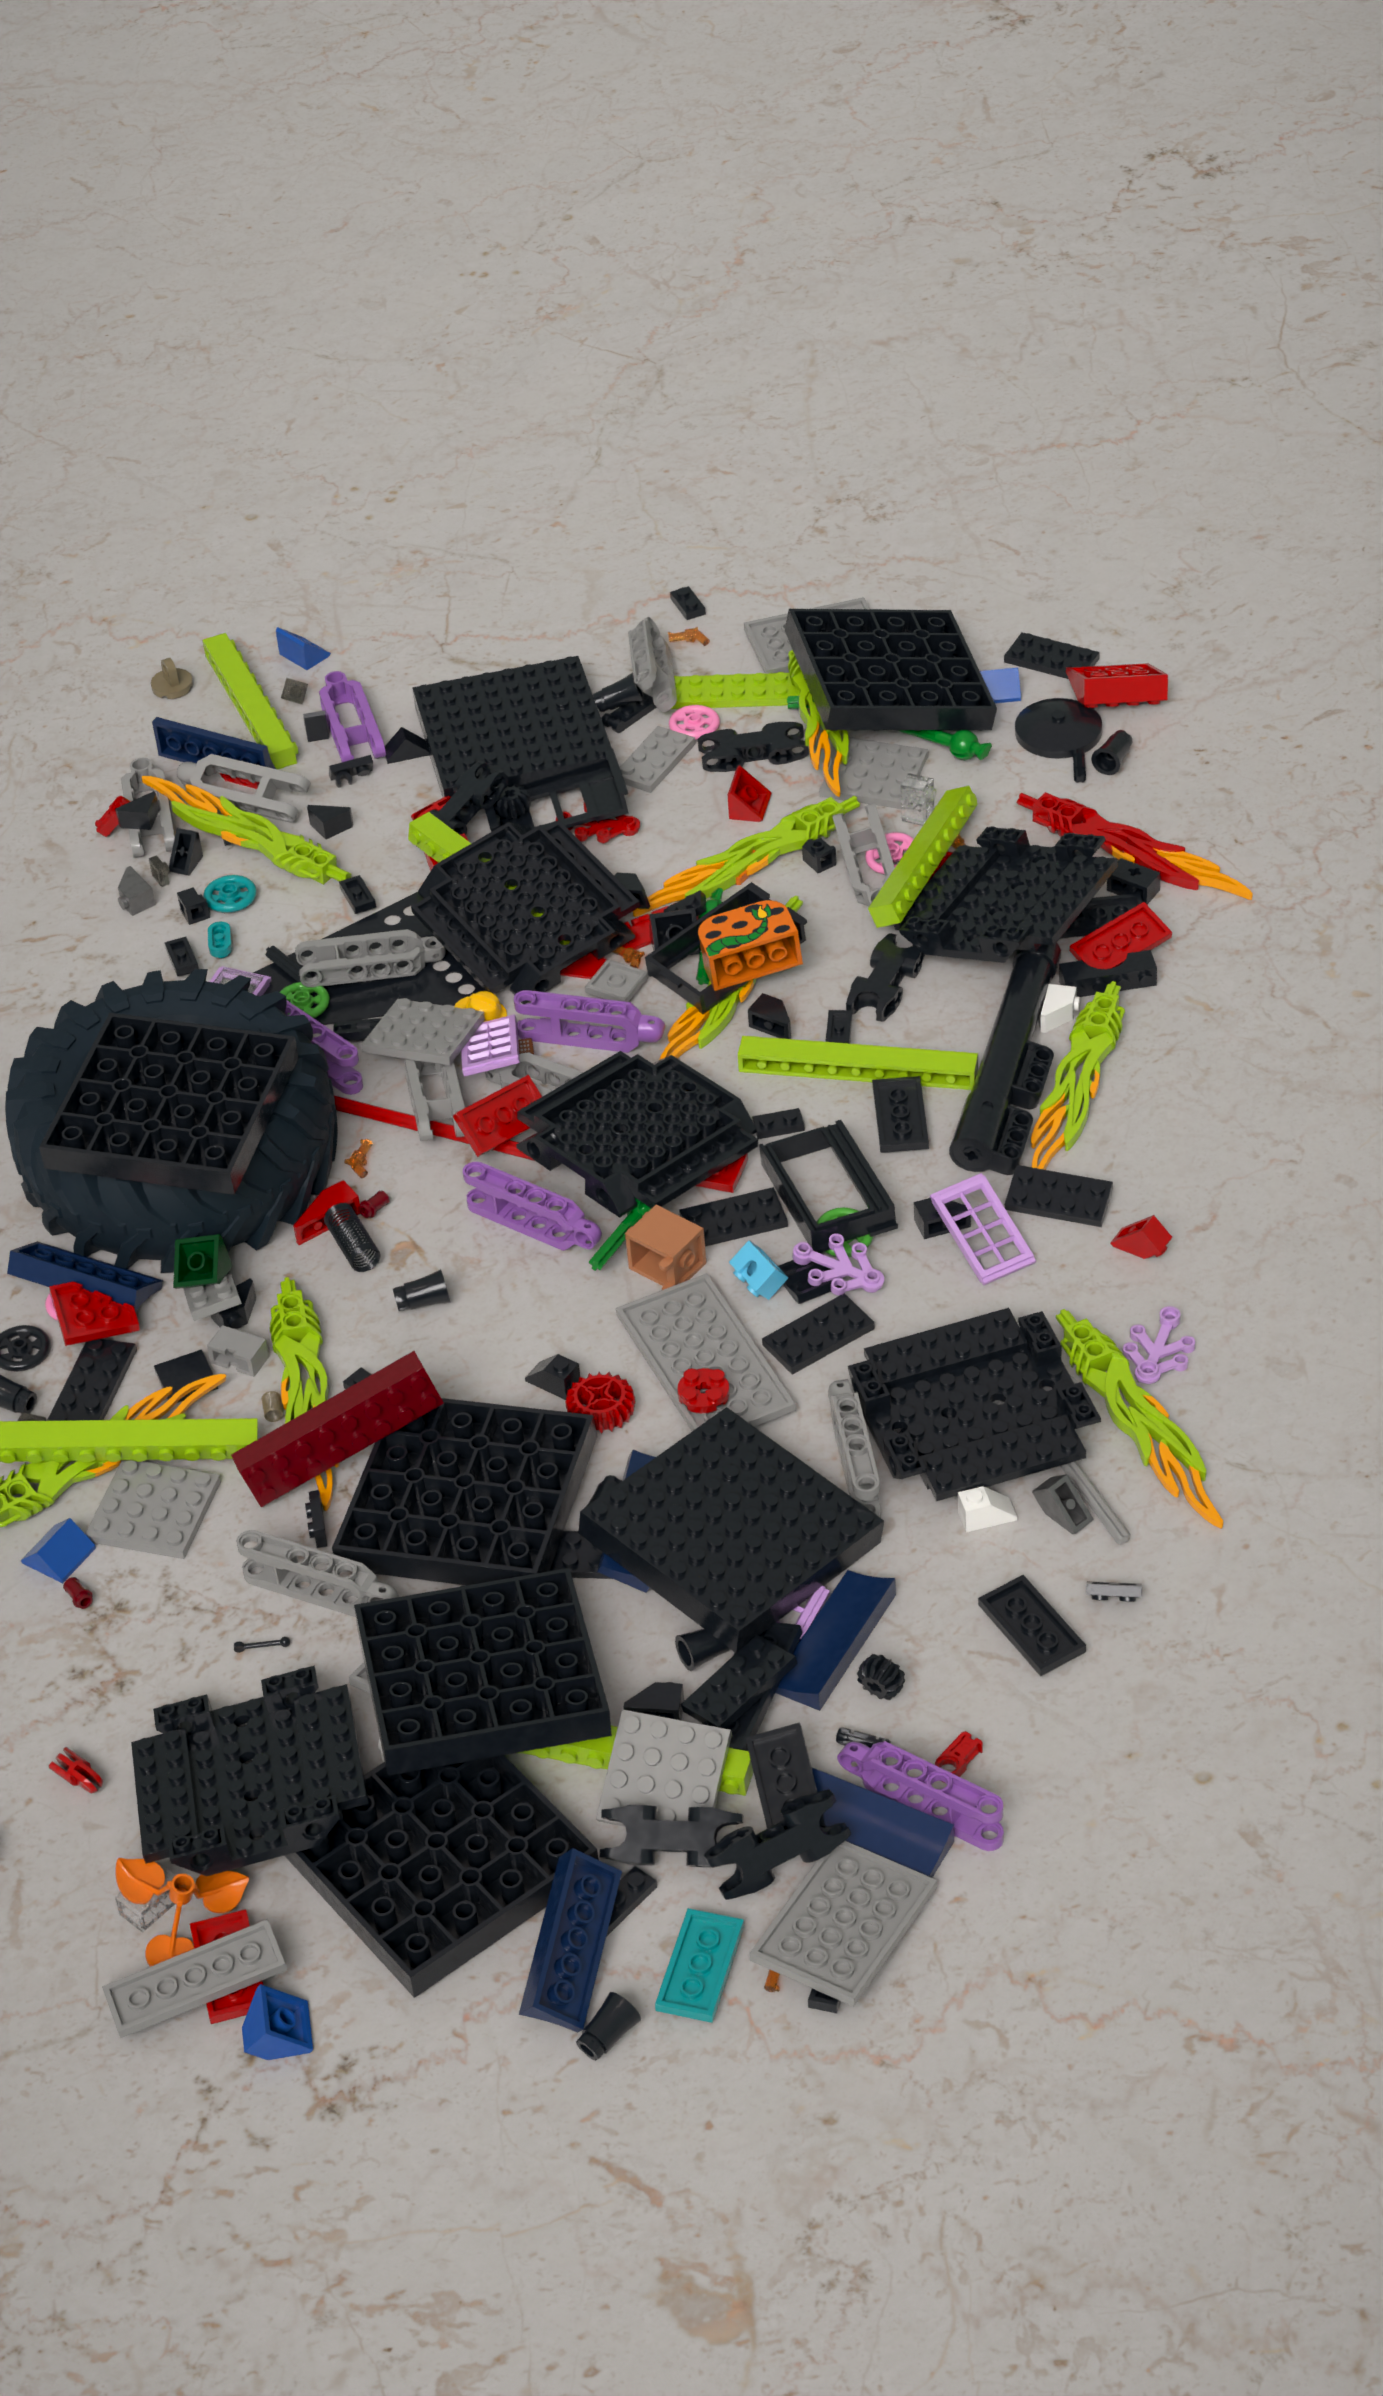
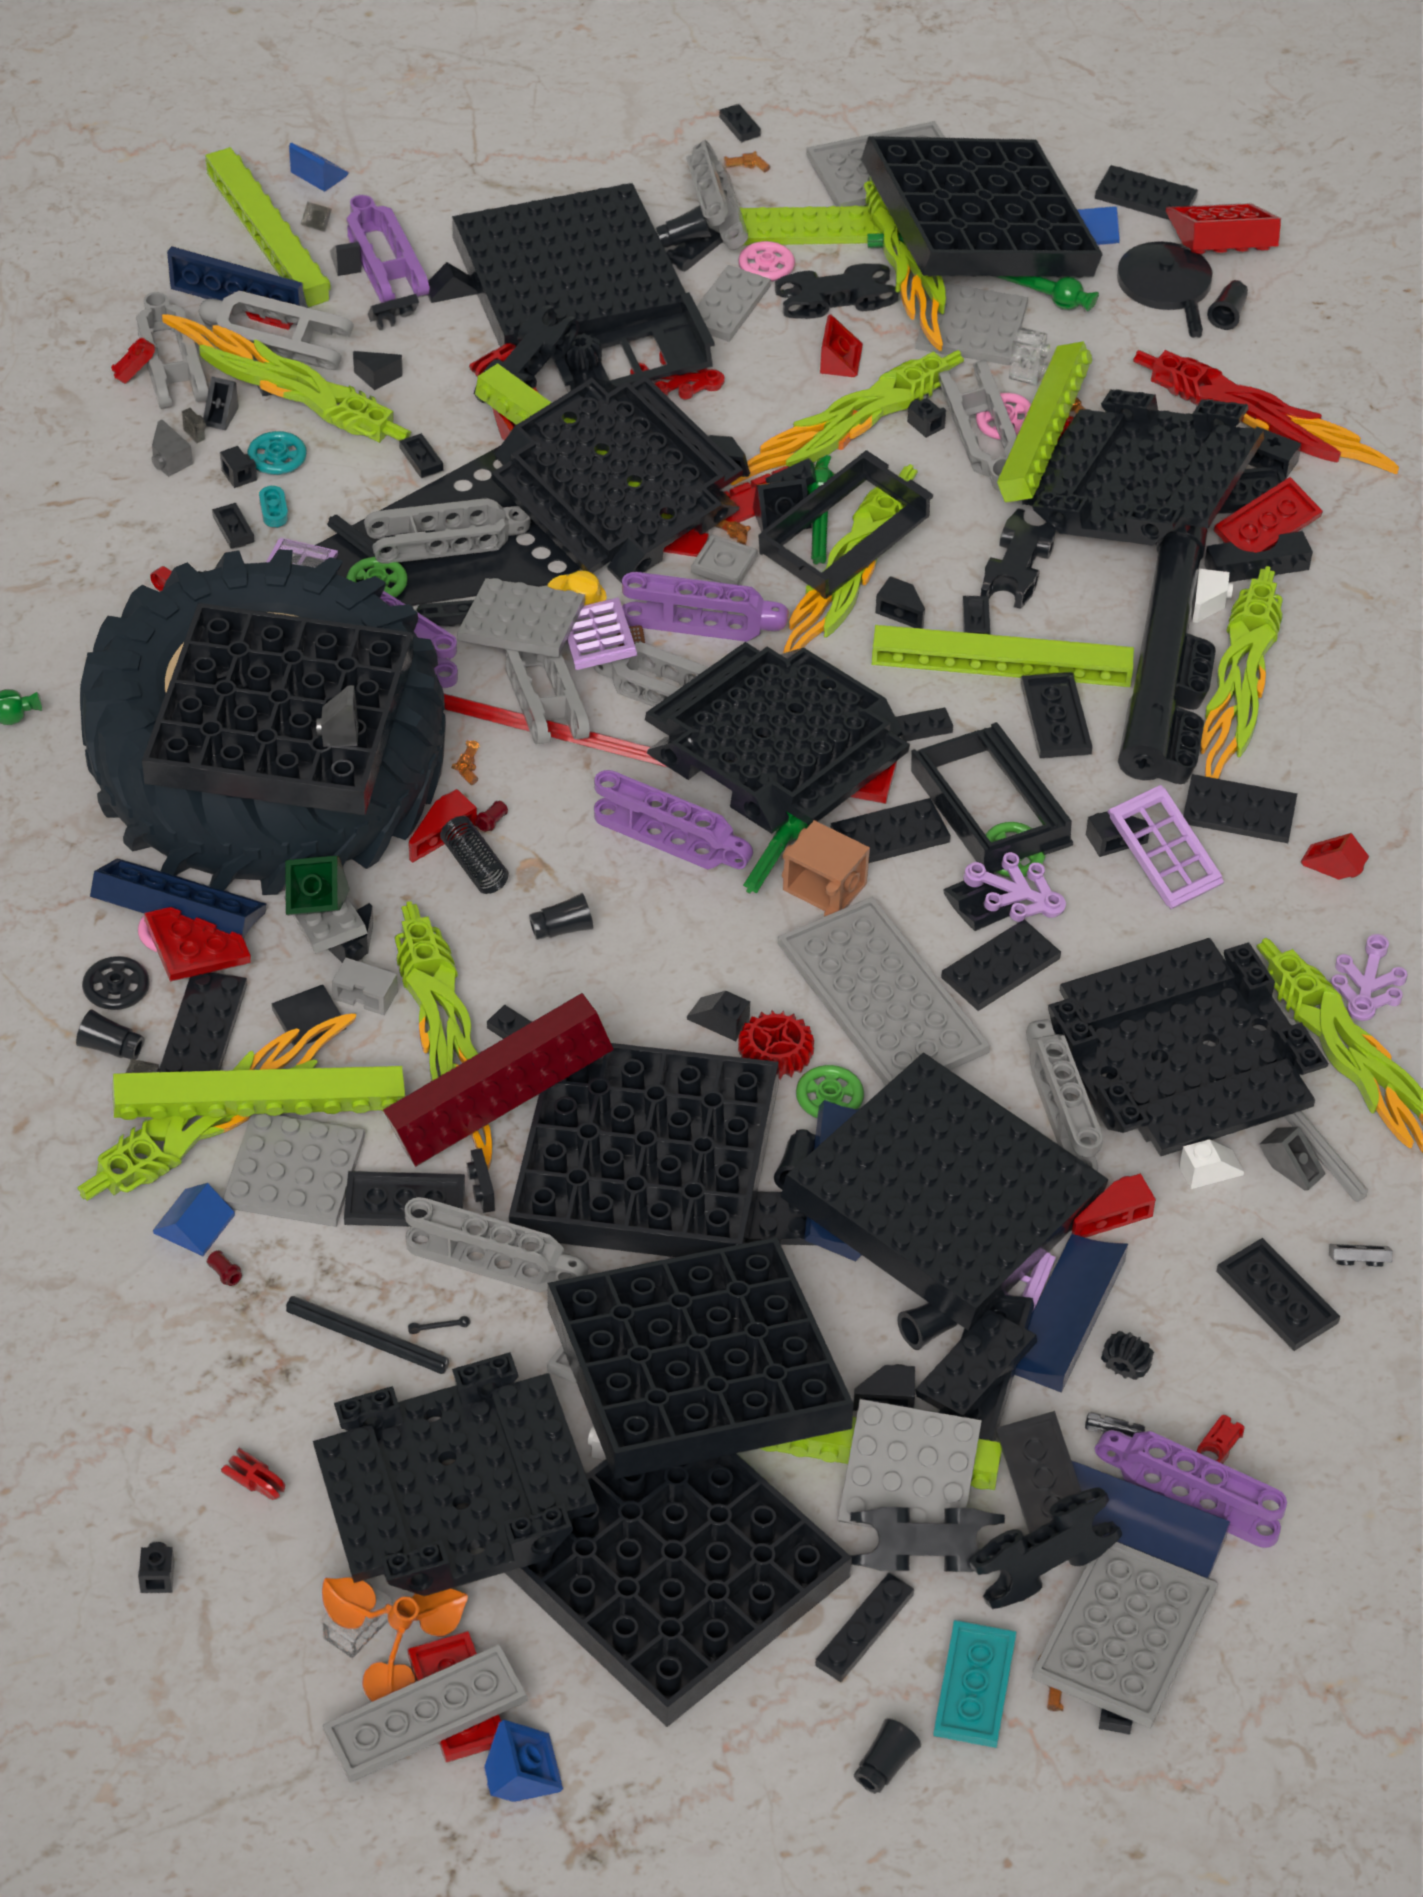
camera: 10 degrees left, 5 degrees up
(139, 812) = (165, 358): black slope -> none
(171, 681) = (174, 202): dark tan tile -> none
(196, 1651) = (367, 1334): none -> black axle
(215, 1110) = (339, 720): none -> flat silver slope
(218, 1530) = (382, 1196): none -> black plate
(275, 1403) = (404, 1049): dark tan piece -> none
(495, 1116) = (620, 716): red plate -> none
(571, 1941) = (834, 1661): dark blue arch -> none
(642, 1442) = (829, 1088): none -> bright green plate
(704, 1378) = (892, 1018): red plate -> none
(749, 943) = (873, 520): orange brick -> none
(757, 1270) = (918, 884): medium azure brick -> none
(891, 1546) = (1119, 1205): none -> red slope

